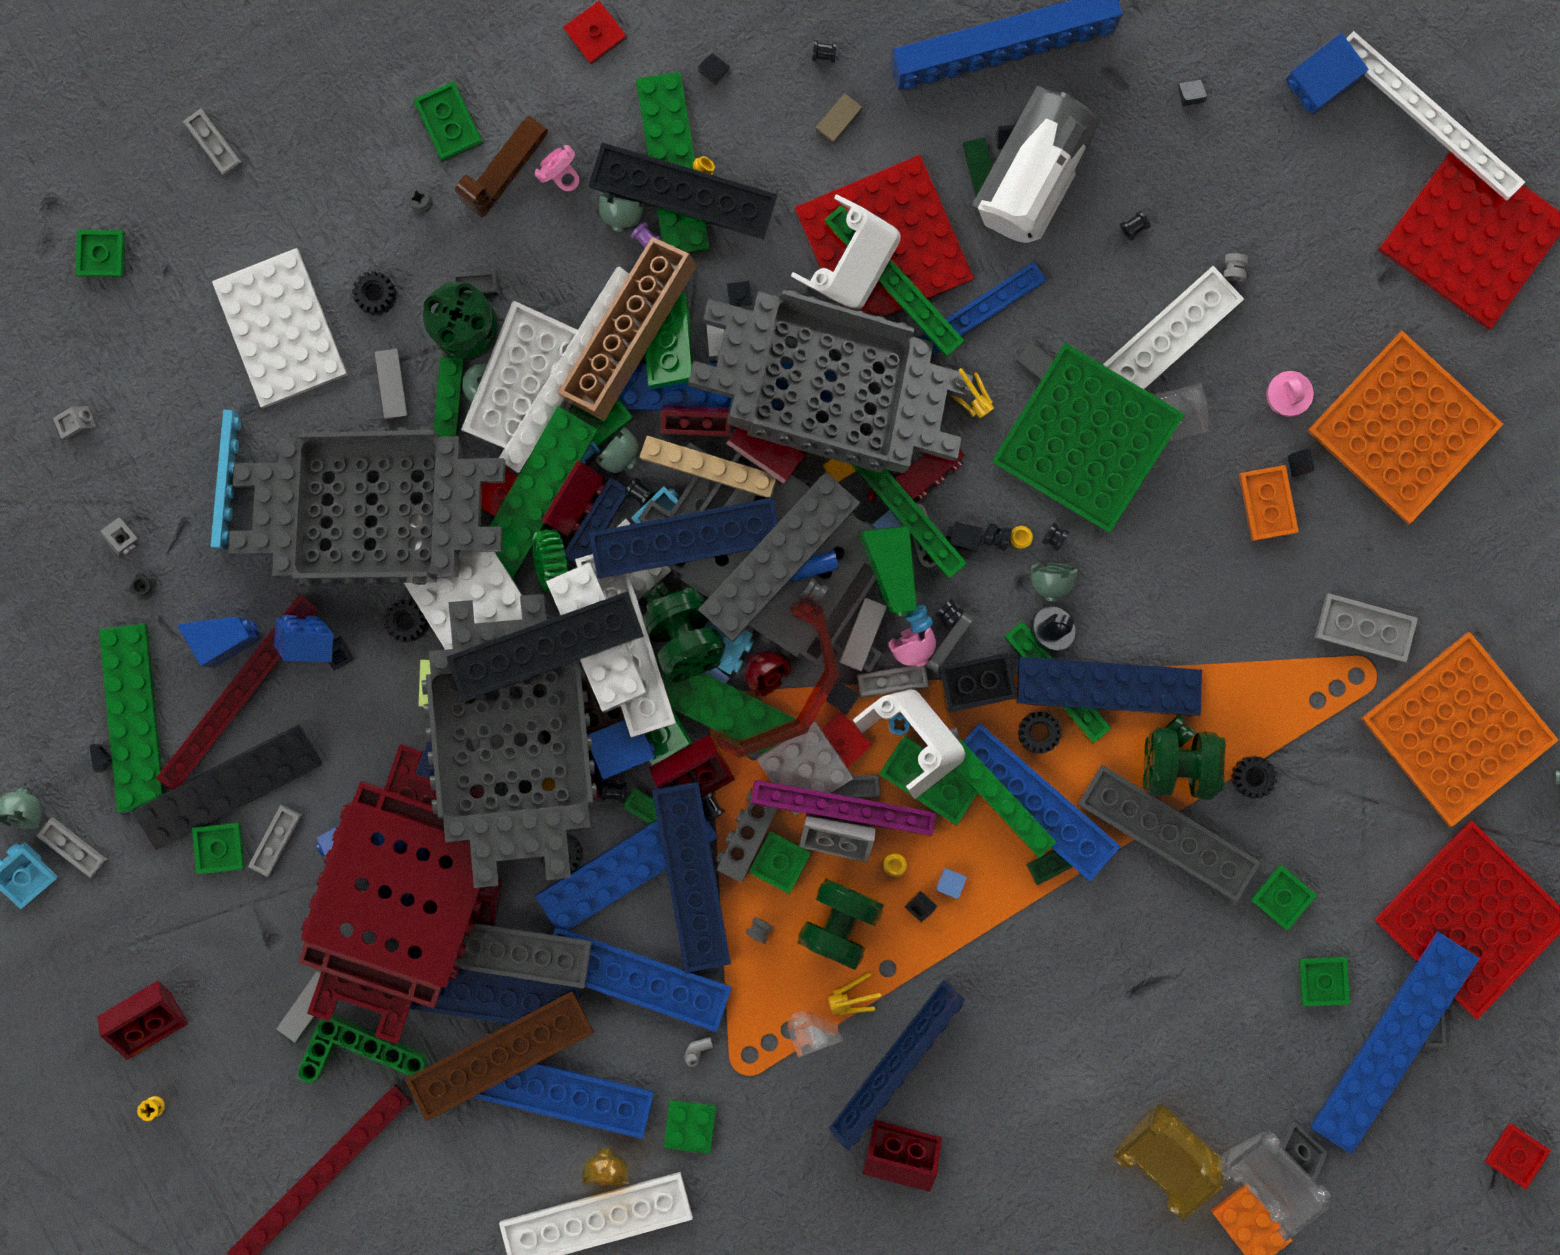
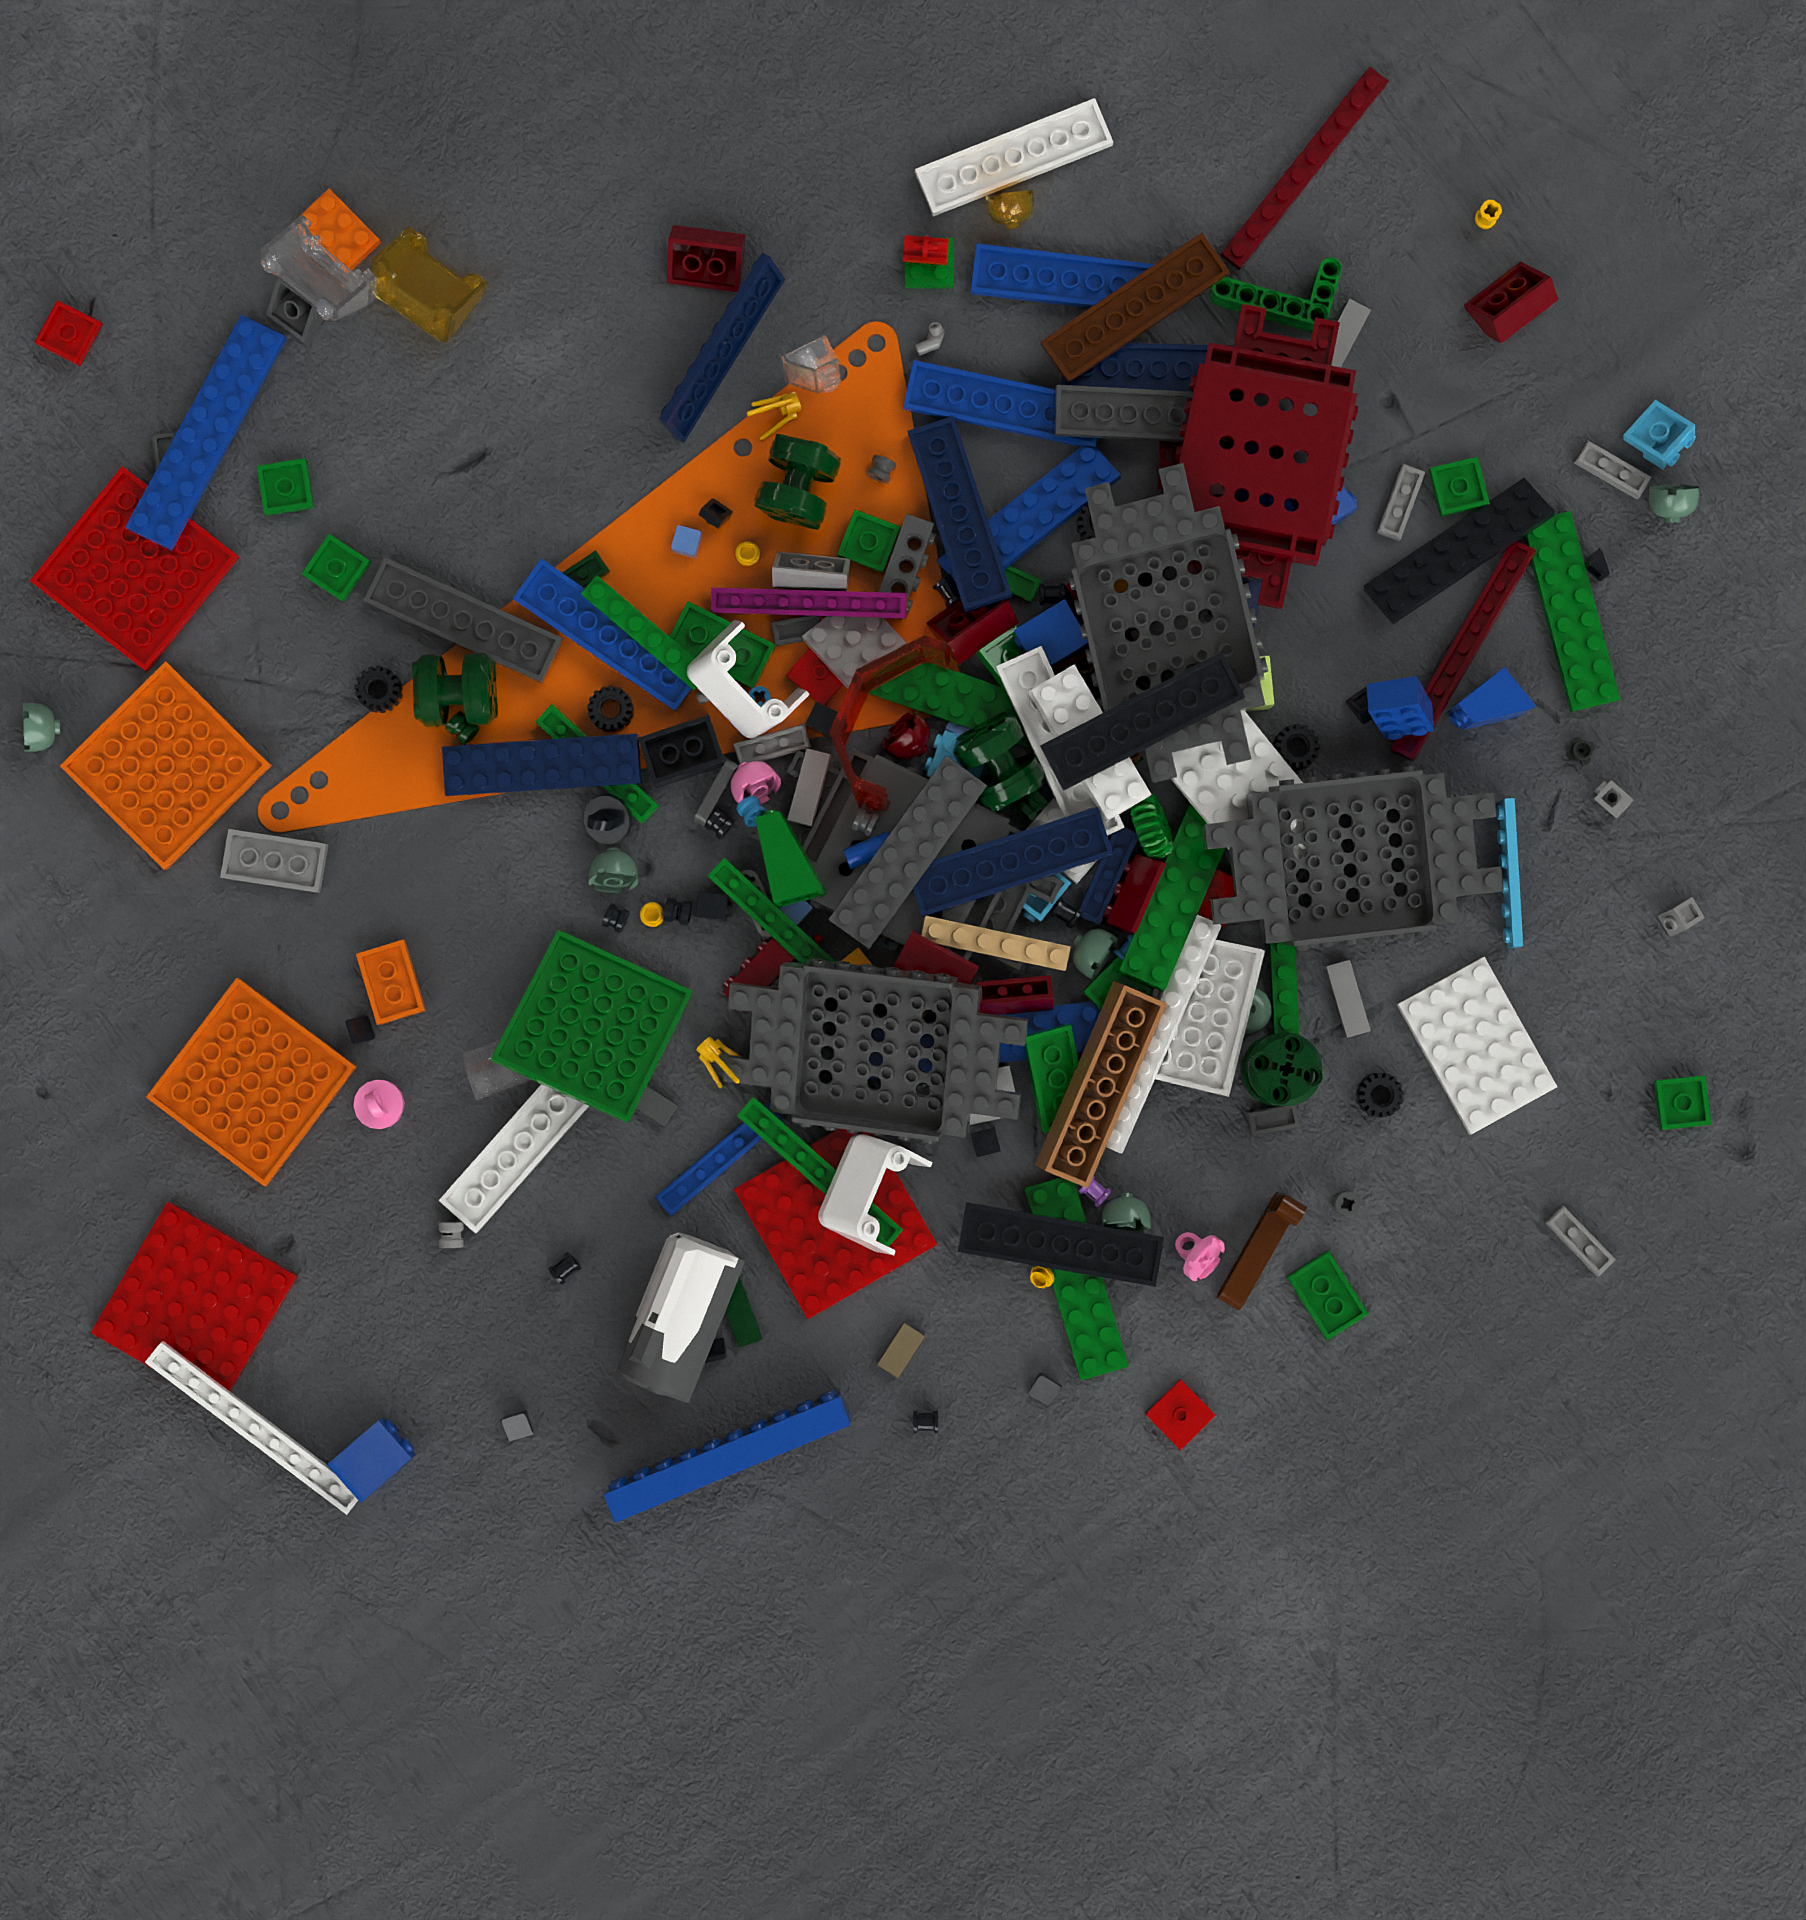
camera: 165 degrees right, 0 degrees up
(692, 1135) = (925, 250): none -> red hips

